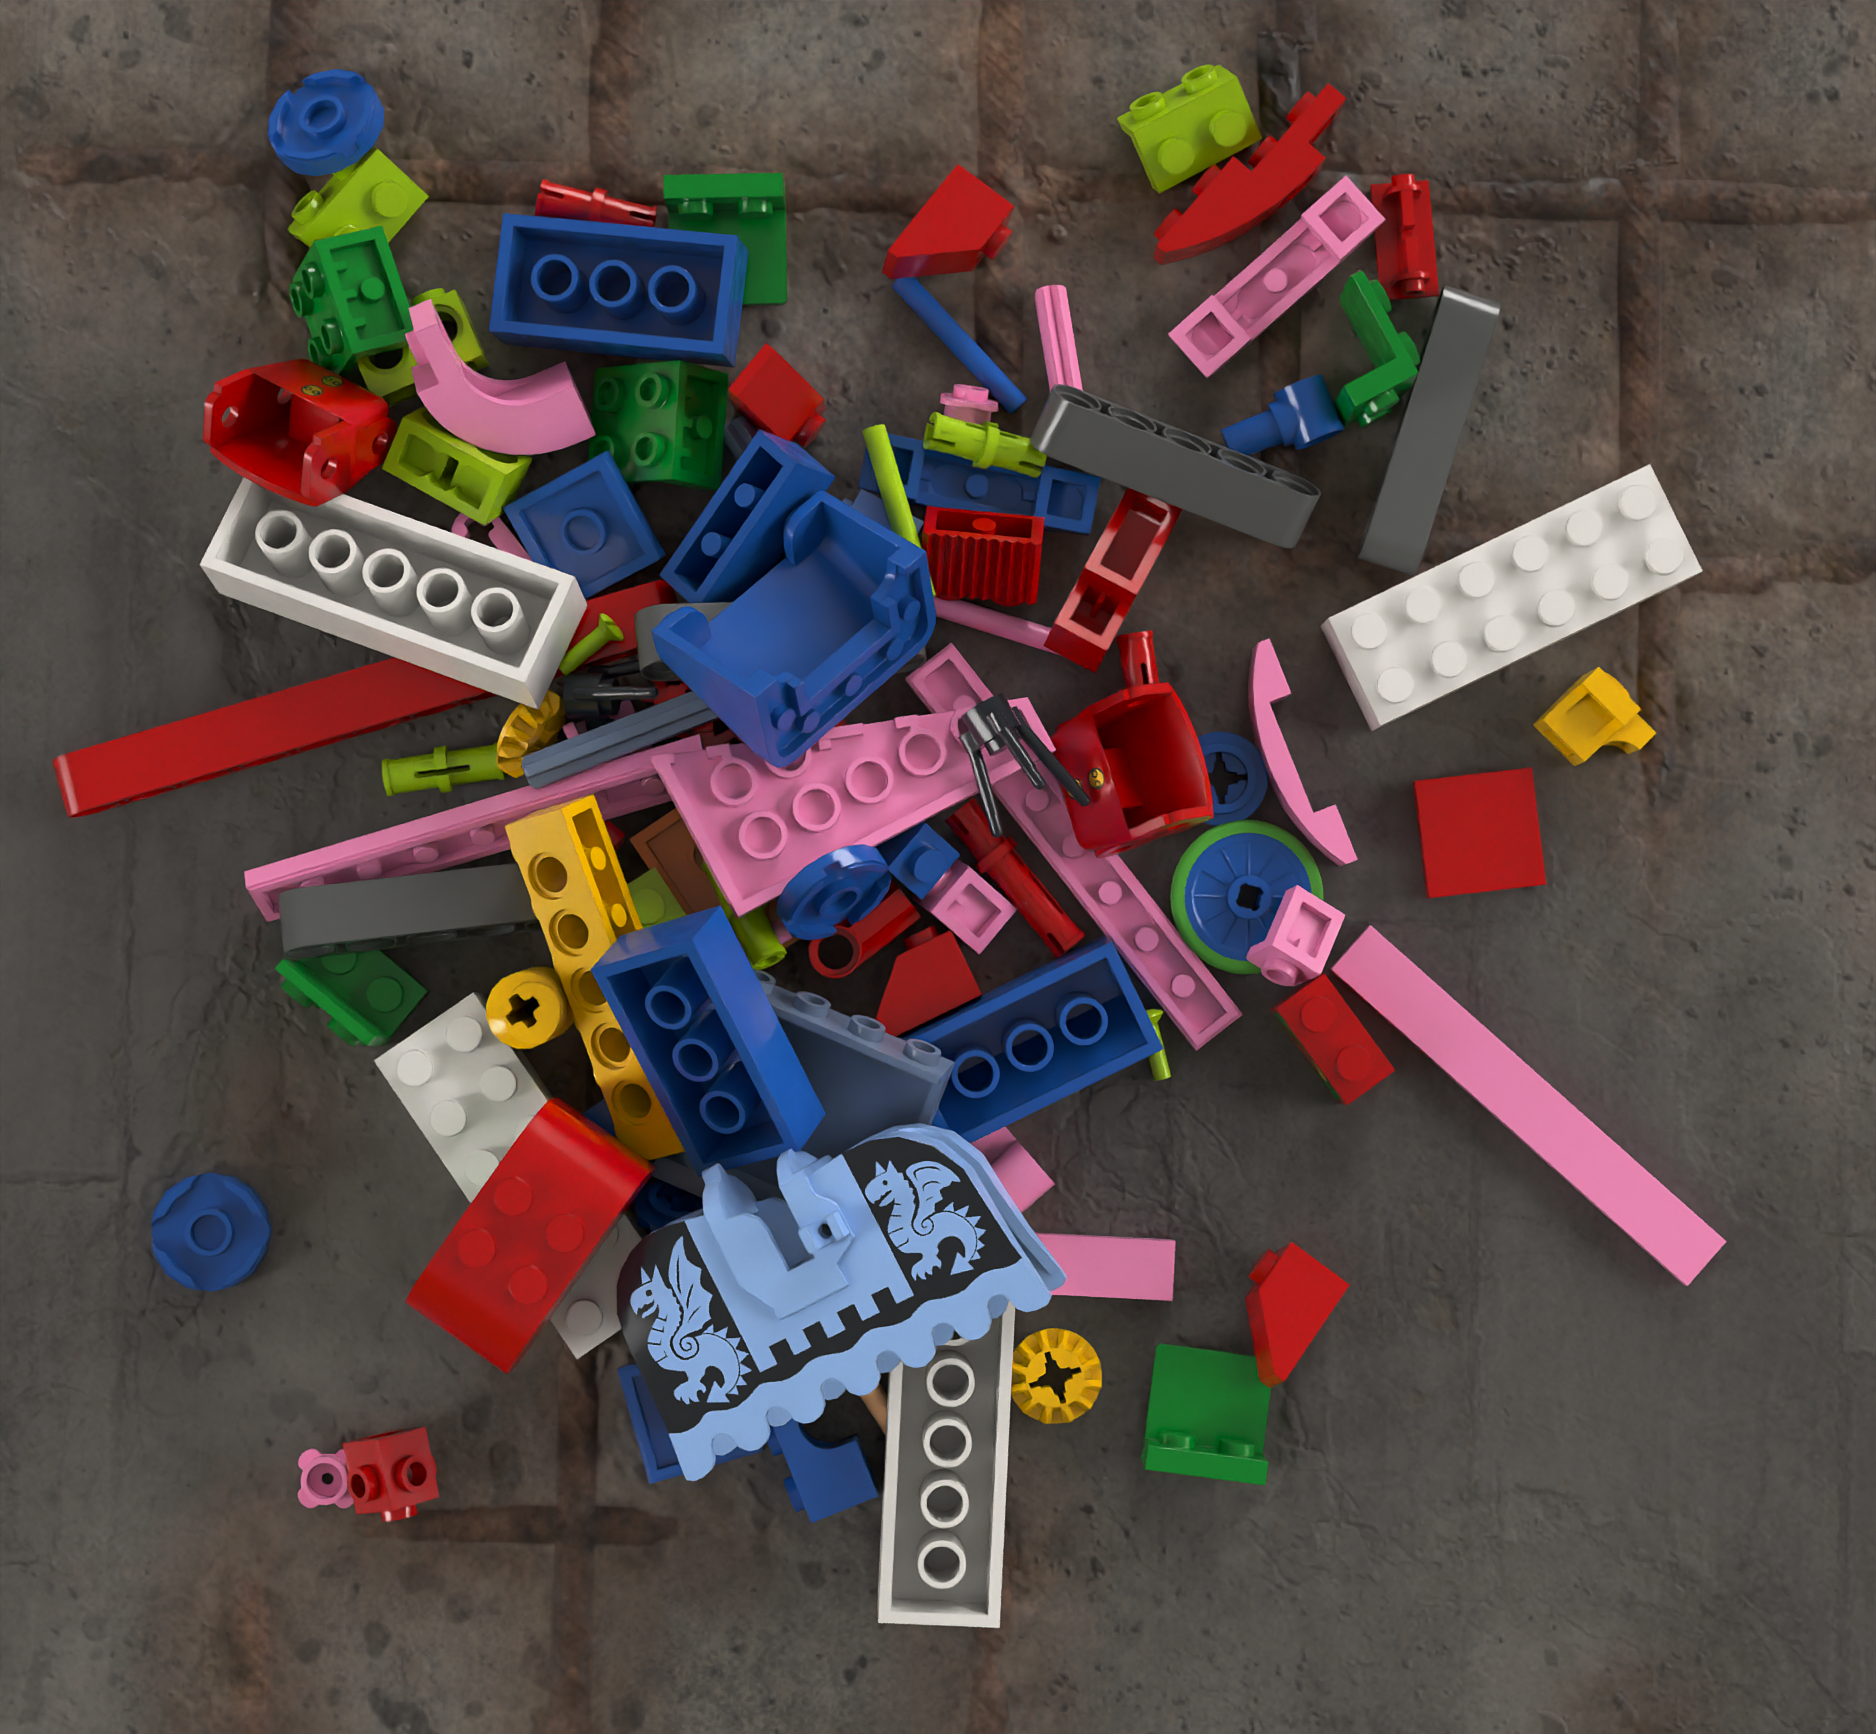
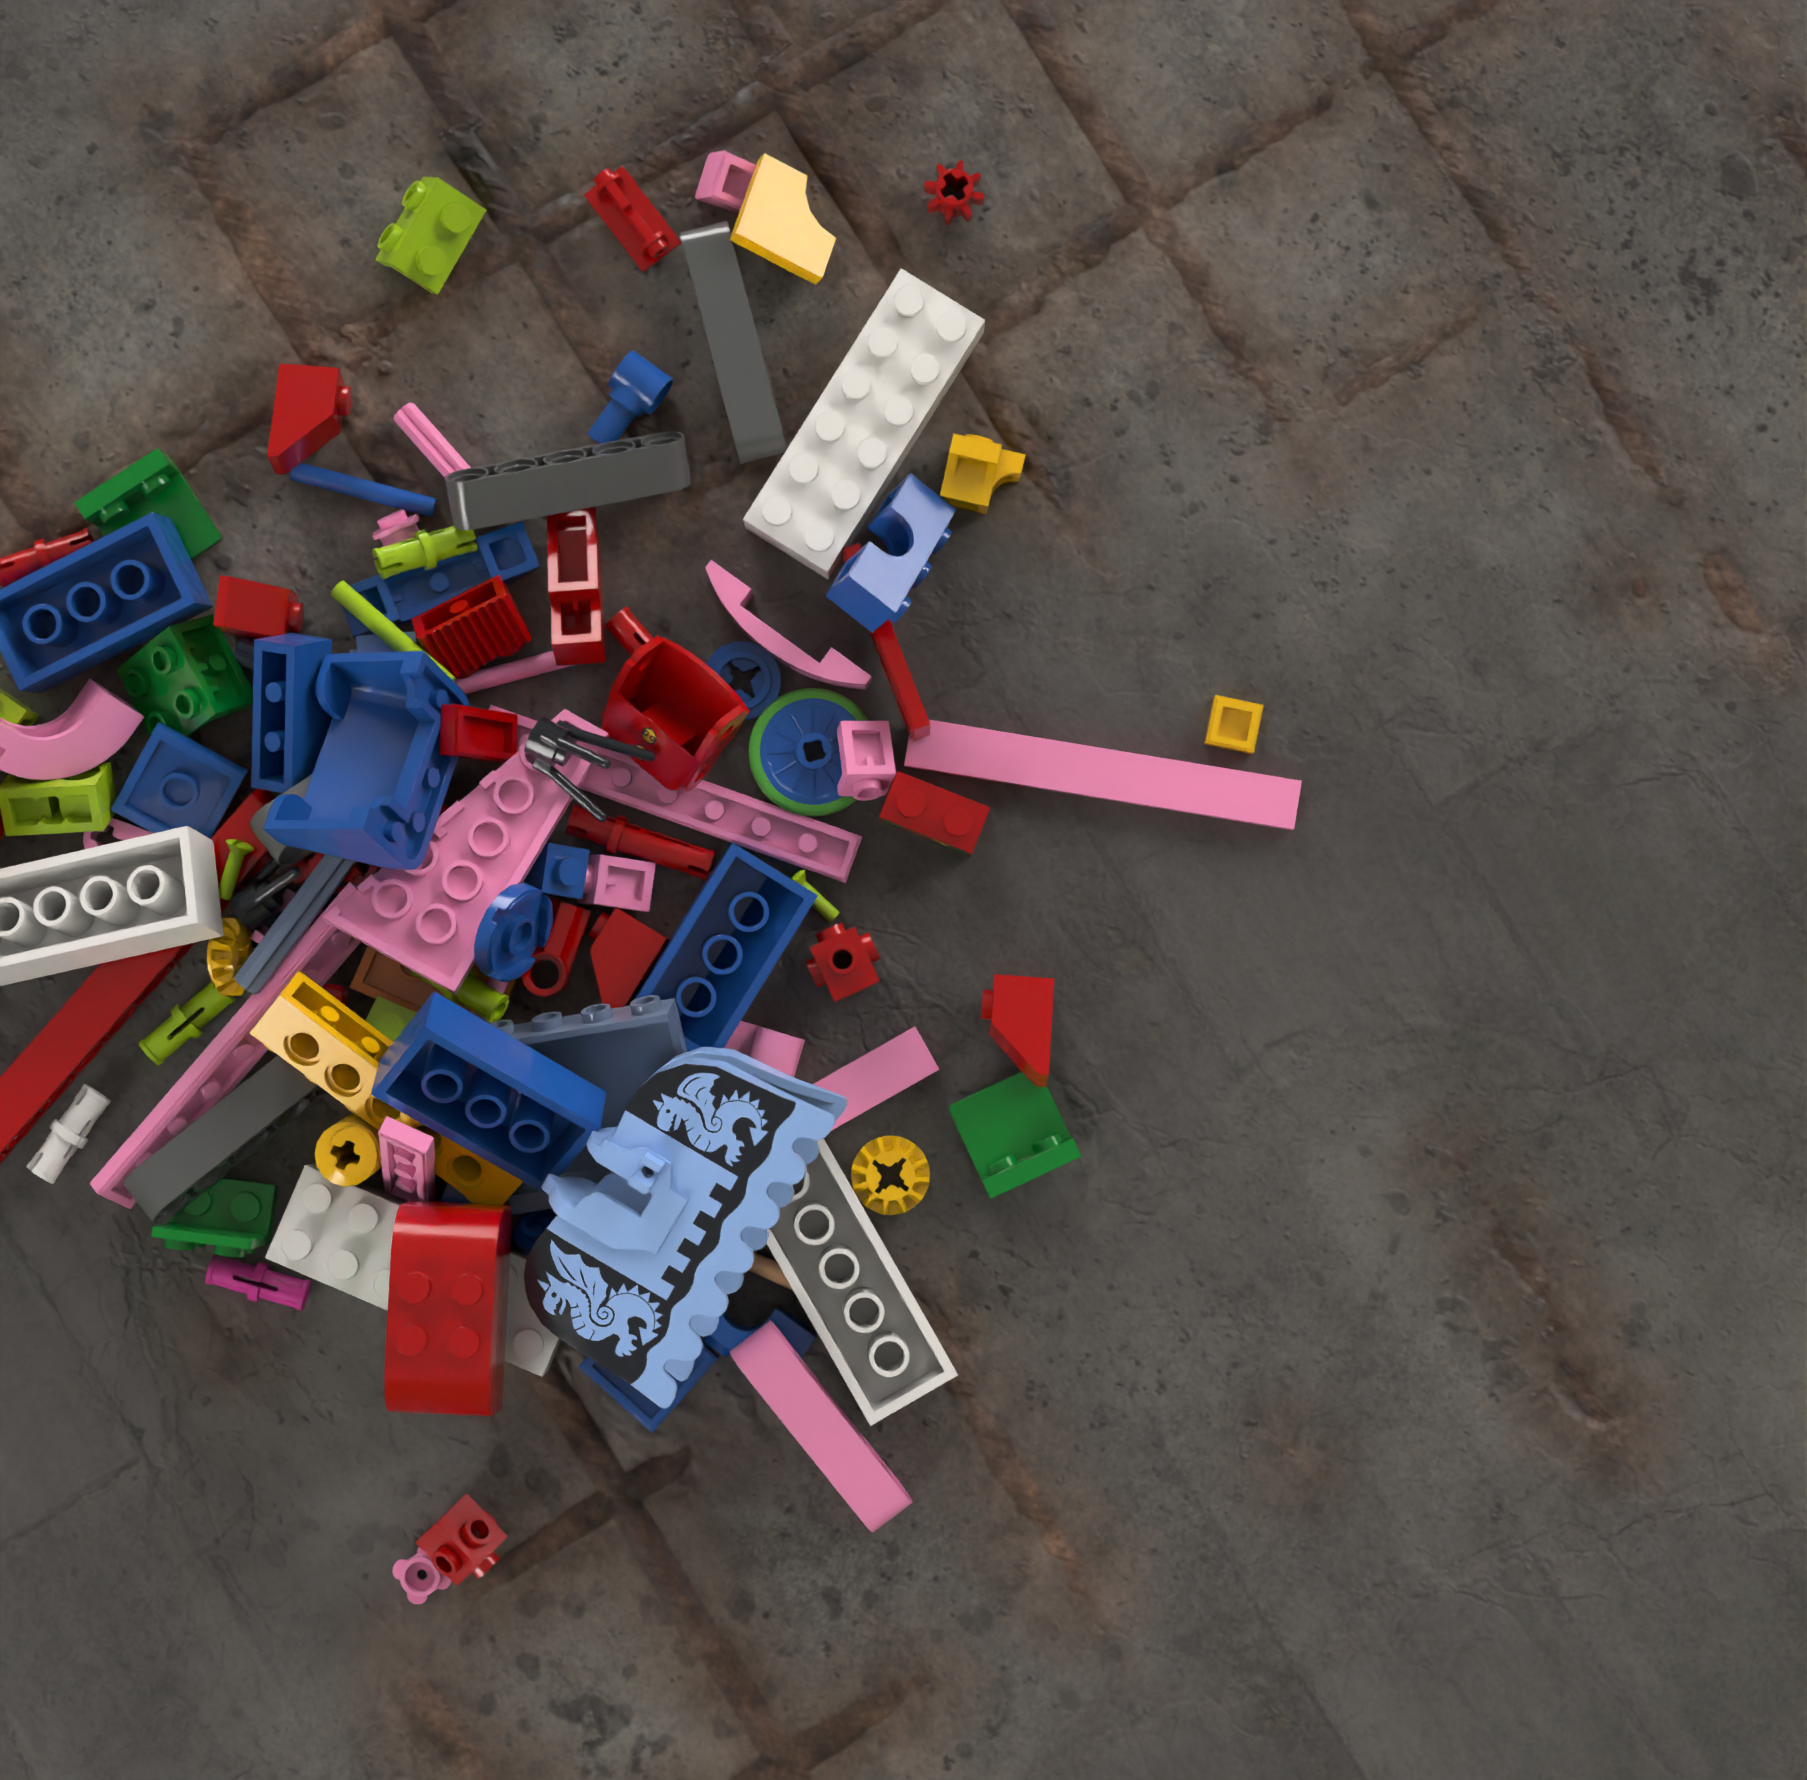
camera: 30 degrees left, 0 degrees up
(210, 1231) = (229, 1453): blue tile -> none
(253, 807) = (68, 1133): none -> white pin
(321, 1048) = (226, 1273): none -> dark pink pin
(580, 1058) = (407, 1161): none -> bright pink tile
(826, 1589) = (820, 1426): none -> bright pink beam
(923, 667) = (477, 733): none -> red tile
(1149, 1154) = (847, 981): none -> red brick
(1240, 199) = (497, 263): red slope -> none
(1277, 278) = (559, 302): bright pink slope -> none
(1392, 354) = (675, 340): green bracket -> none
(1392, 833) = (897, 672): none -> red tile
(1479, 833) = (954, 605): red tile -> none
(1494, 736) = (876, 583): none -> arch
(1525, 265) = (724, 180): none -> bright pink slope
(1552, 339) = (779, 223): none -> yellow tile
(1692, 1139) = (1233, 724): none -> yellow tile
(1760, 408) = (957, 179): none -> red gear

